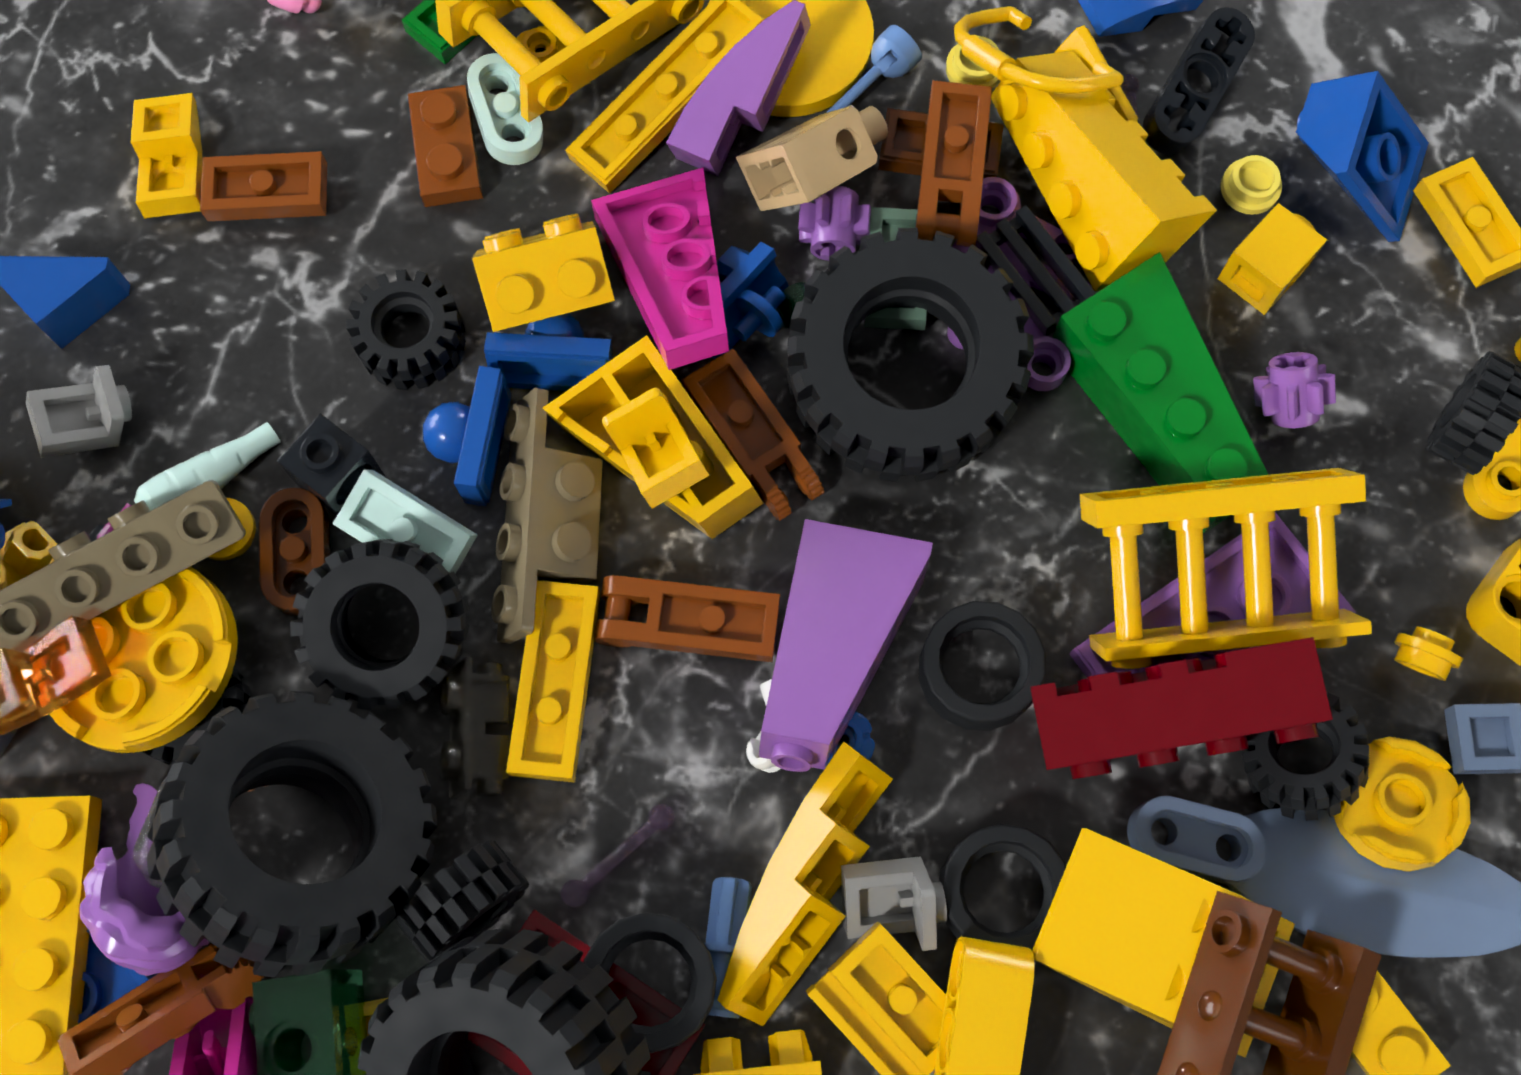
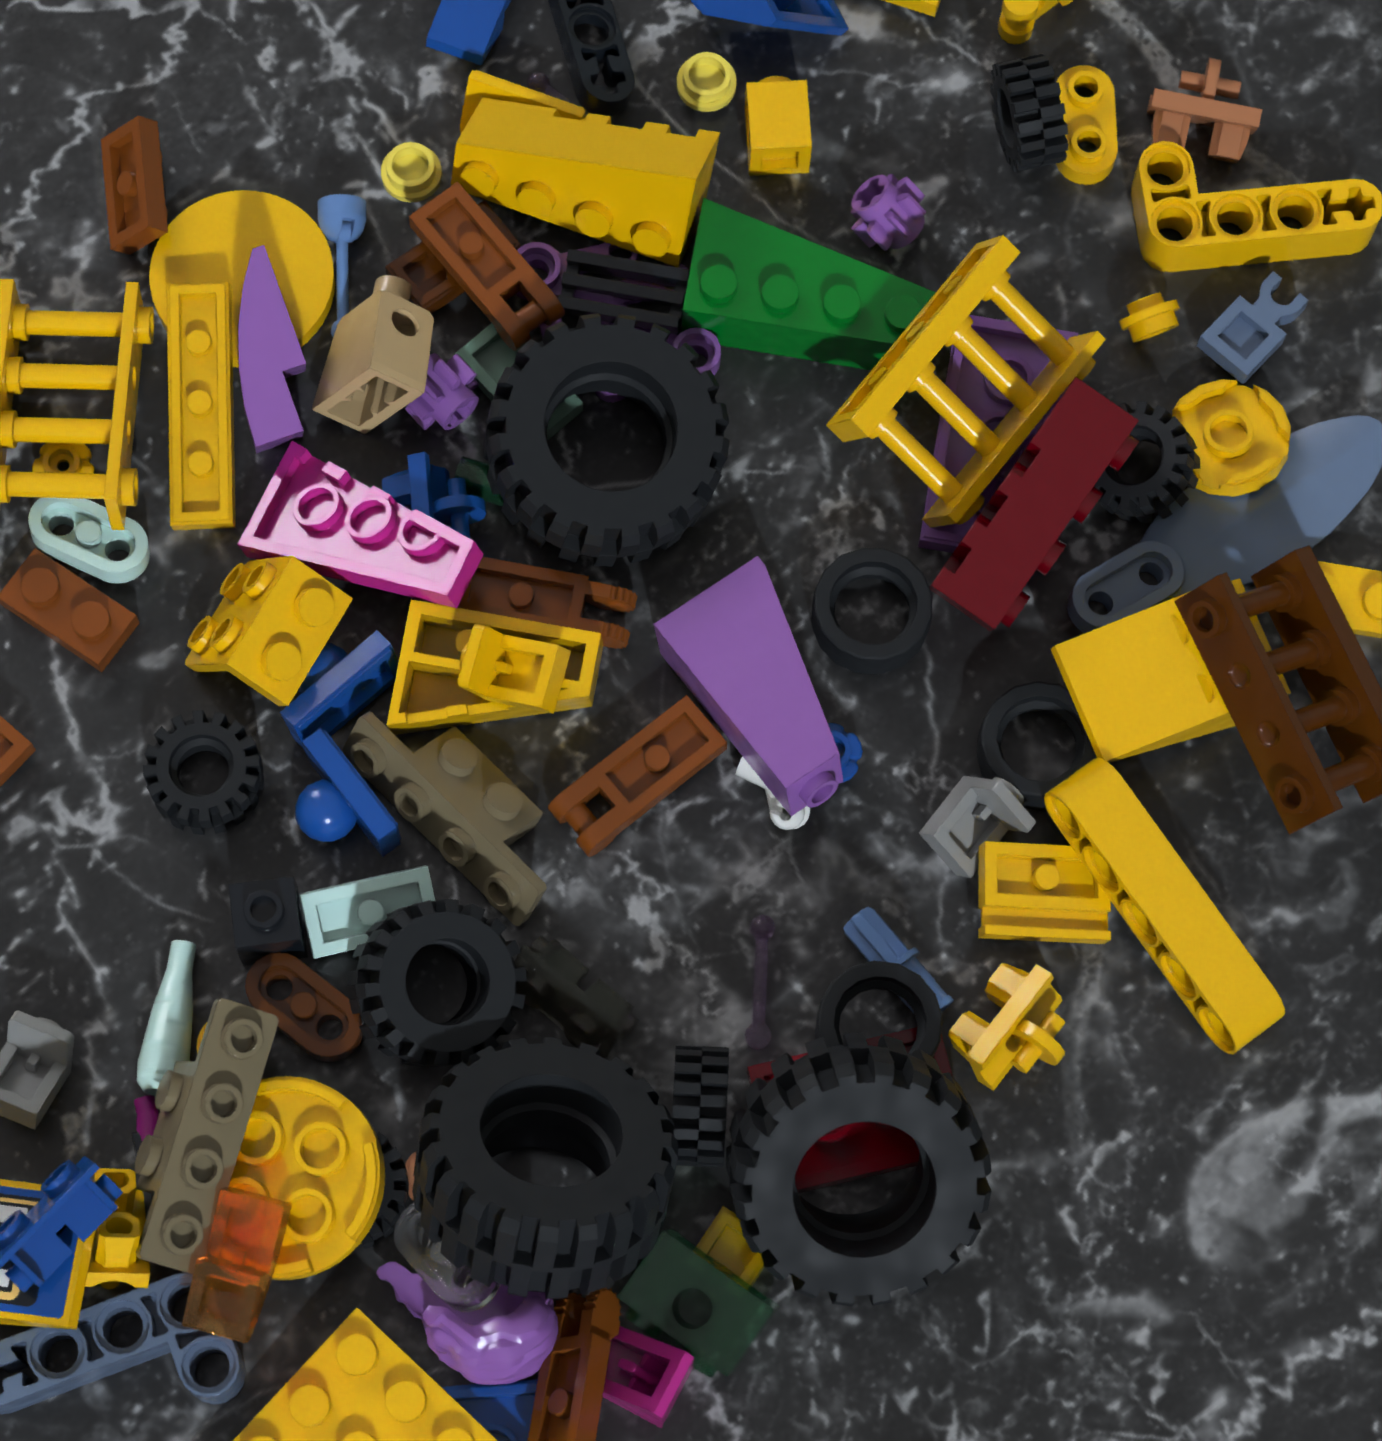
camera: 50 degrees left, 0 degrees up
(554, 683) = (595, 911): yellow plate -> none
(792, 906) = (916, 893): yellow slope -> none
(1005, 67) = (452, 158): yellow piece -> none

